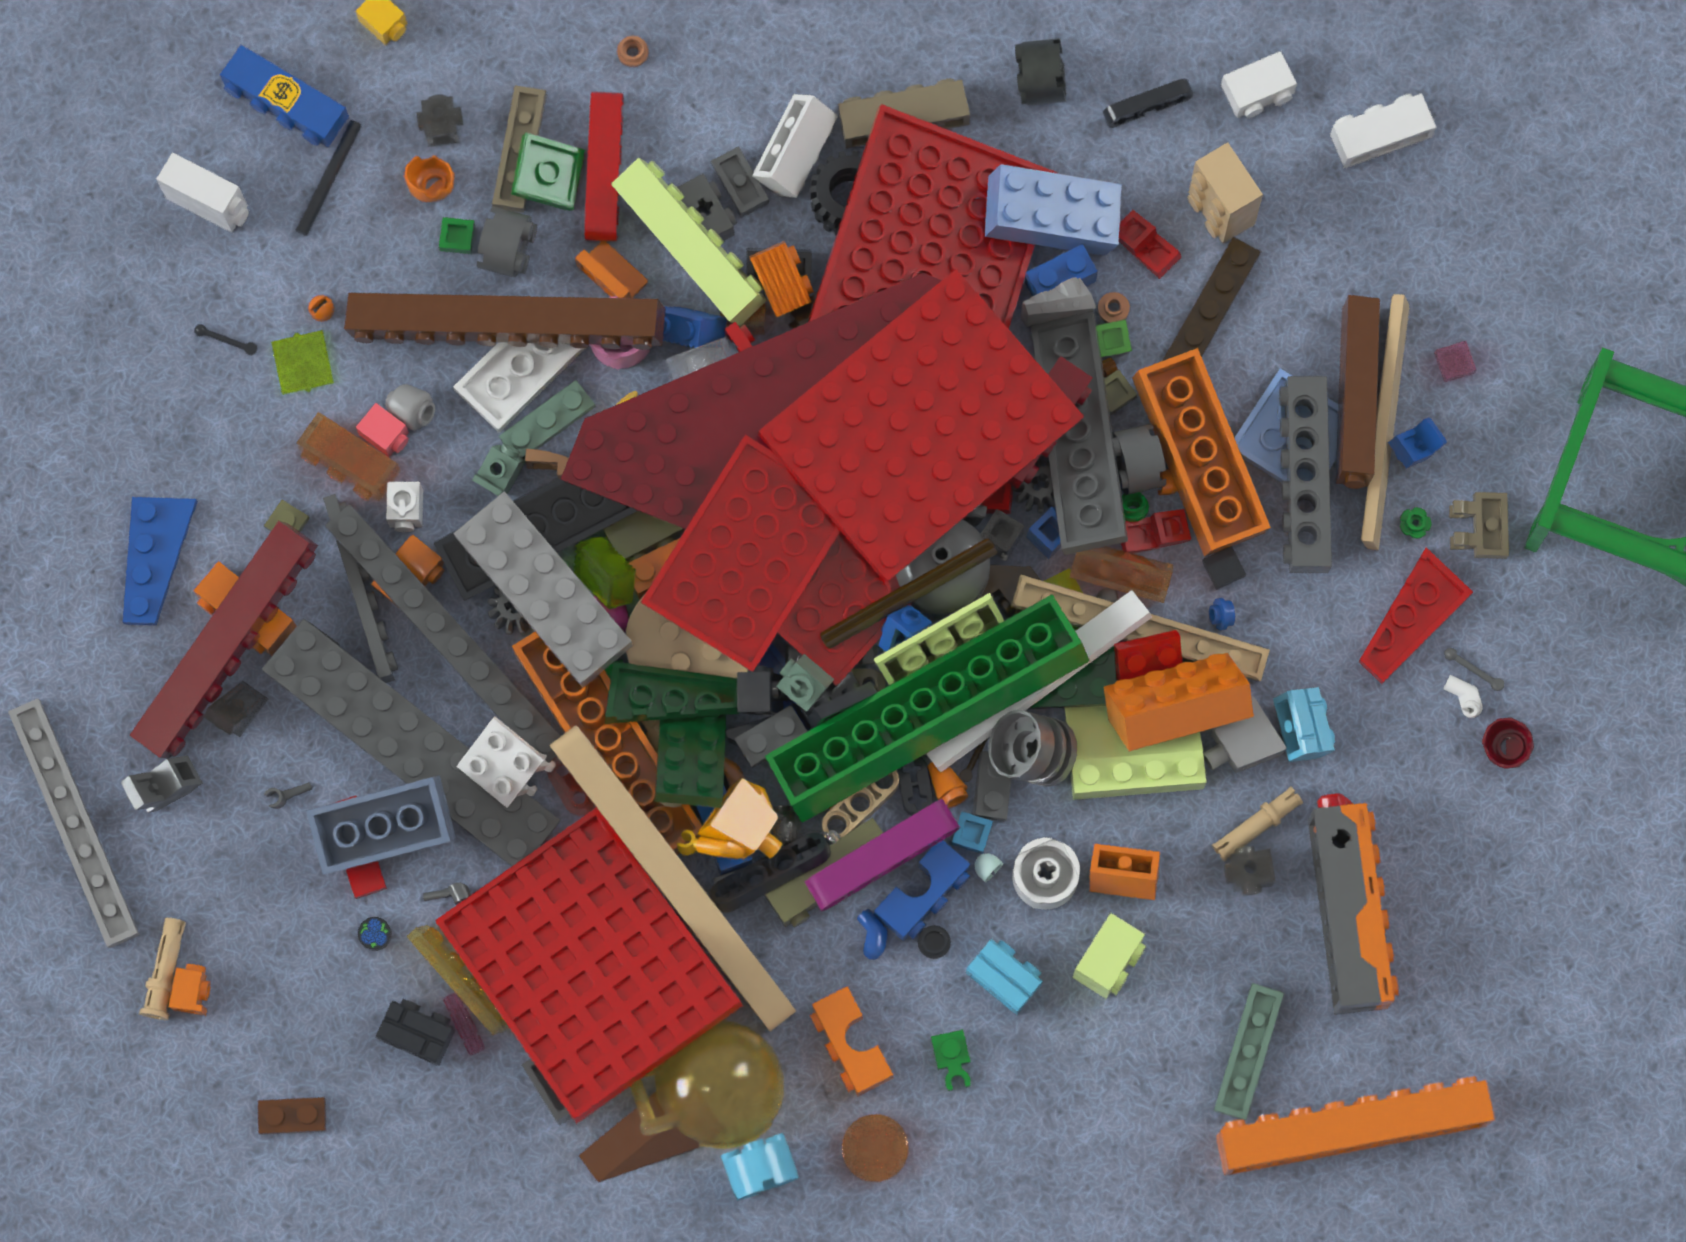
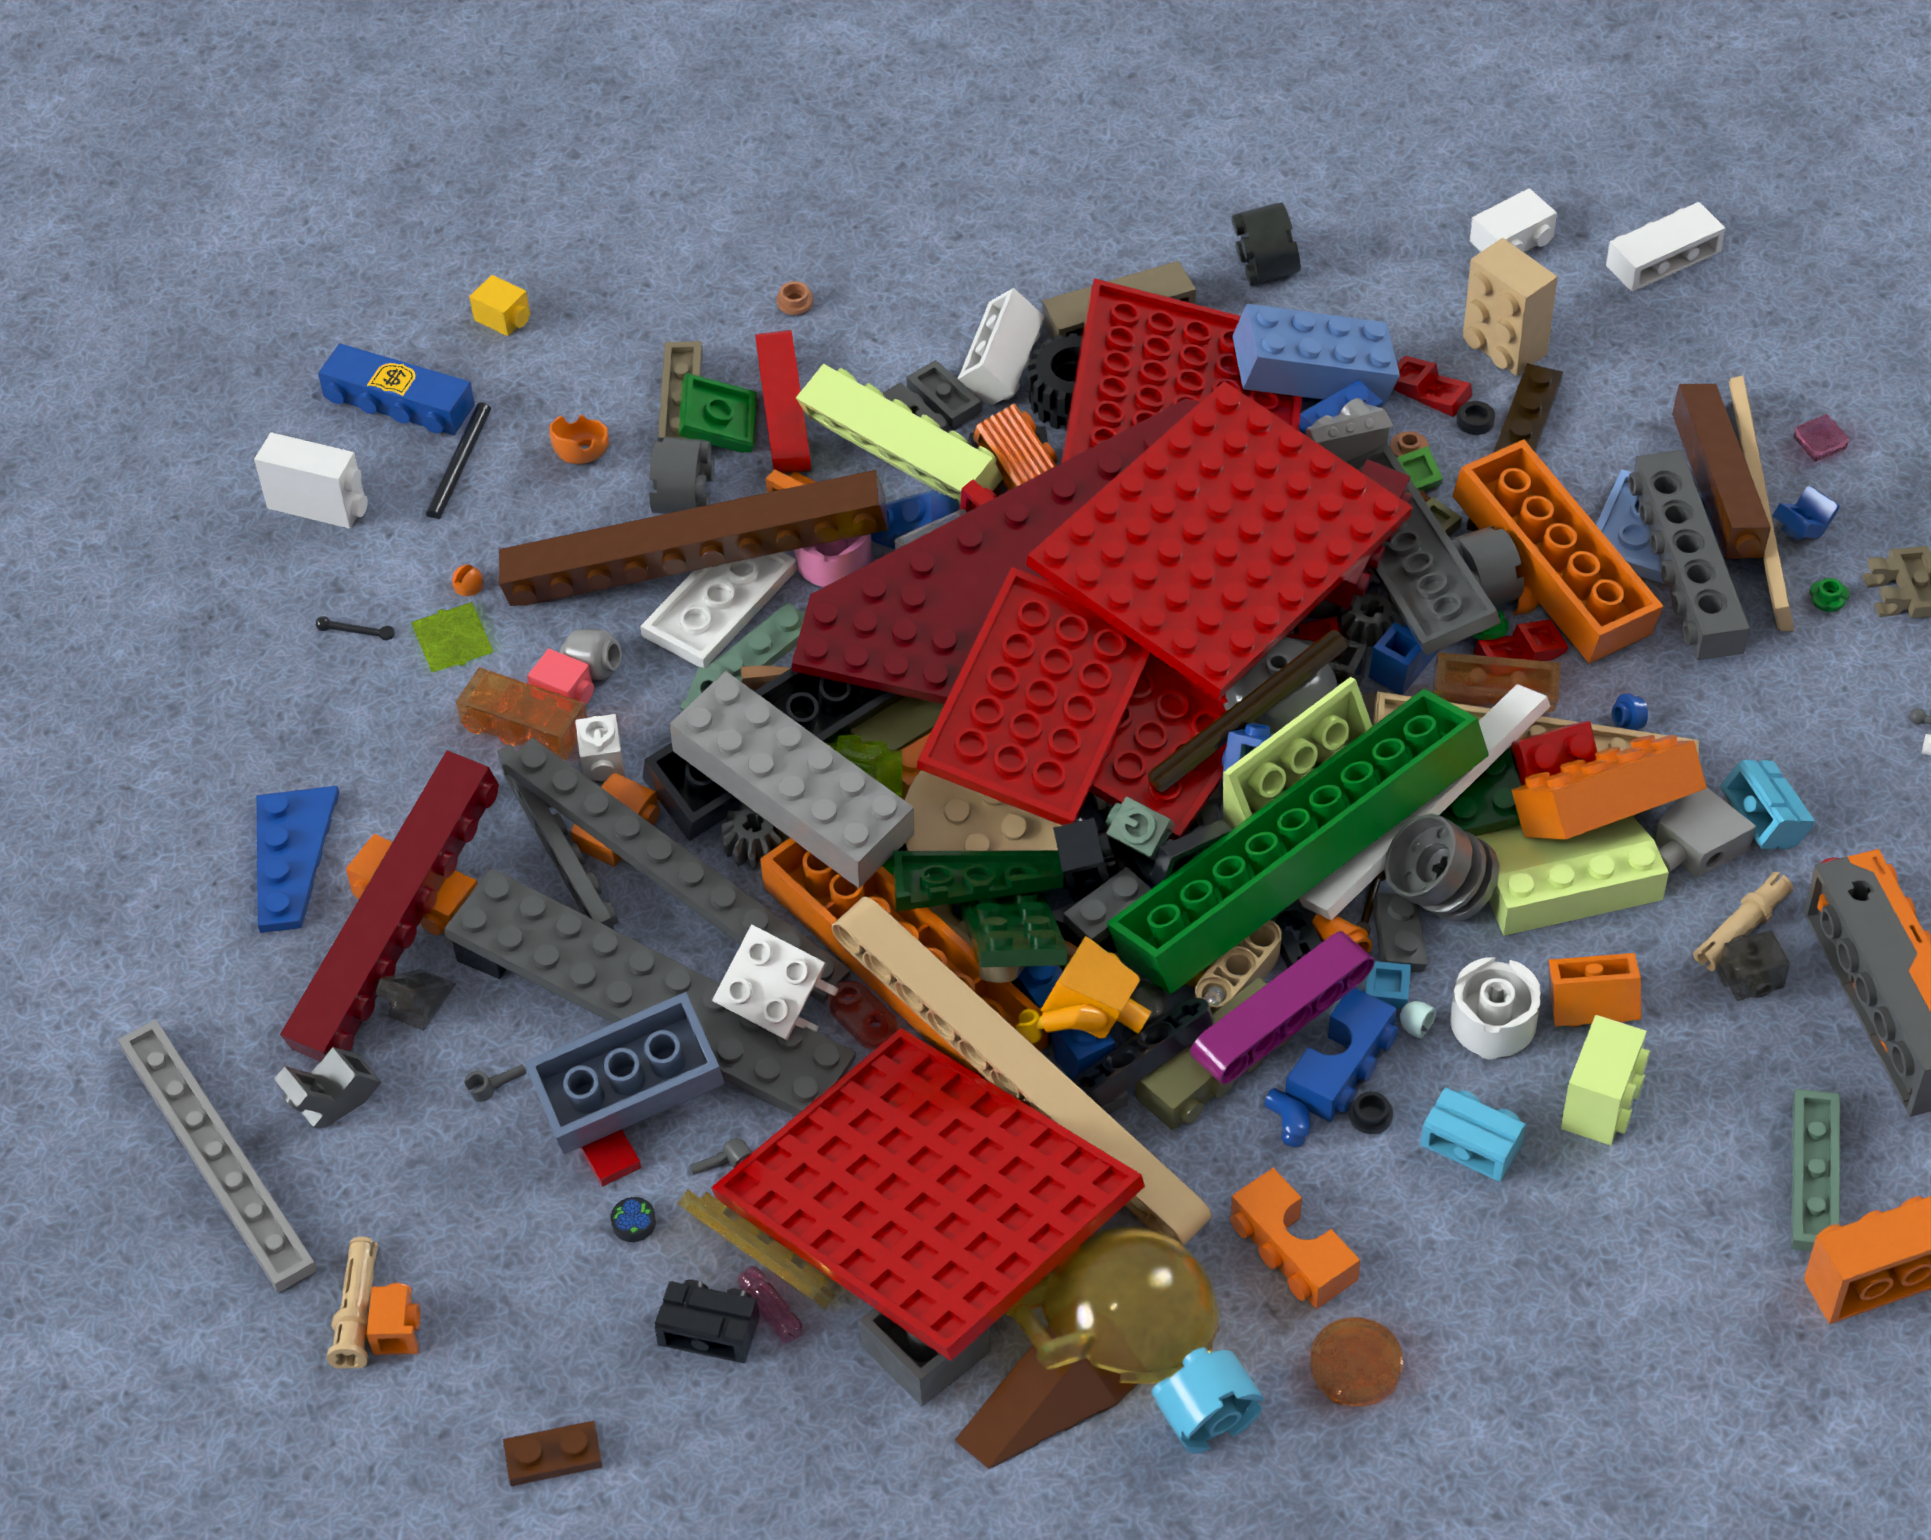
camera: 10 degrees left, 25 degrees down
(440, 120) = (583, 375): clear smoke brick -> none
(457, 235) = (620, 488): green plate -> none
(952, 1053) = (1429, 1236): green plate -> none
(1156, 98) = (1411, 253): black beam -> none
(1177, 285) = (1475, 417): none -> black tile
(1223, 567) = (1616, 671): black tile -> none
(1417, 612) = (1862, 680): red wing -> none

